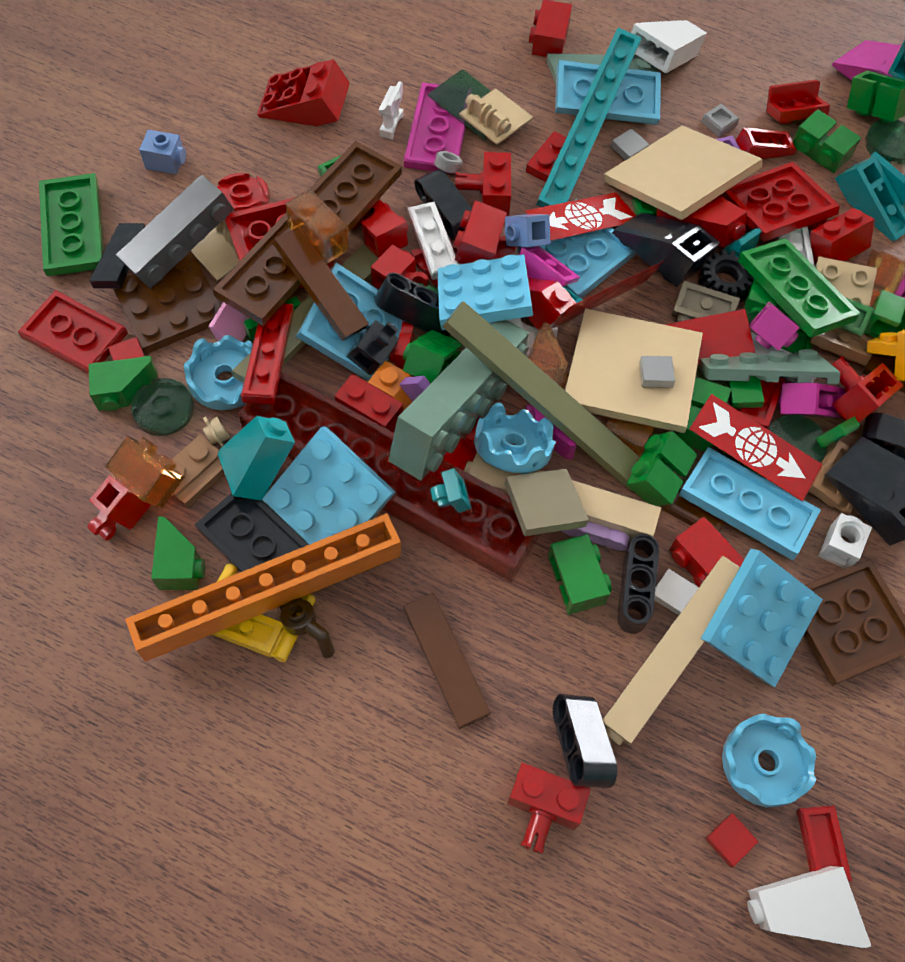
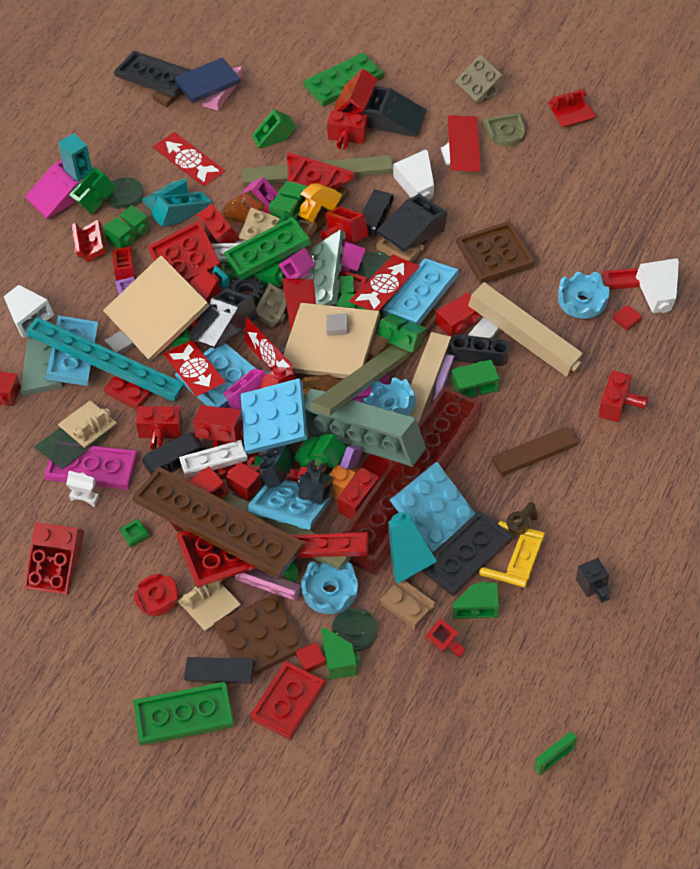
camera: 85 degrees left, 10 degrees down
(144, 471) = (416, 622): clear orange brick -> none
(162, 152) = (110, 653): medium blue brick -> none
(175, 231) = (214, 614): brick -> none
(190, 728) = (594, 579): none -> black brick
(215, 431) = (378, 587): tan plate -> none
(263, 587) = (504, 534): orange brick -> none
(319, 225) = (228, 505): clear orange brick -> none
(320, 283) = (271, 508): reddish brown tile -> none
(448, 162) = (138, 450): light grey tile -> none
(452, 491) = (435, 429): teal tile -> none
(527, 230) = (217, 392): medium blue brick -> none
(546, 502) = (435, 384): dark tan tile -> none
(584, 741) = (592, 376): black beam -> none
(720, 120) = (96, 288): light grey tile -> none
(762, 617) = (505, 283): medium azure plate -> none
(838, 432) = (372, 242): green tile -> none
(839, 551) = (444, 249): white brick -> none

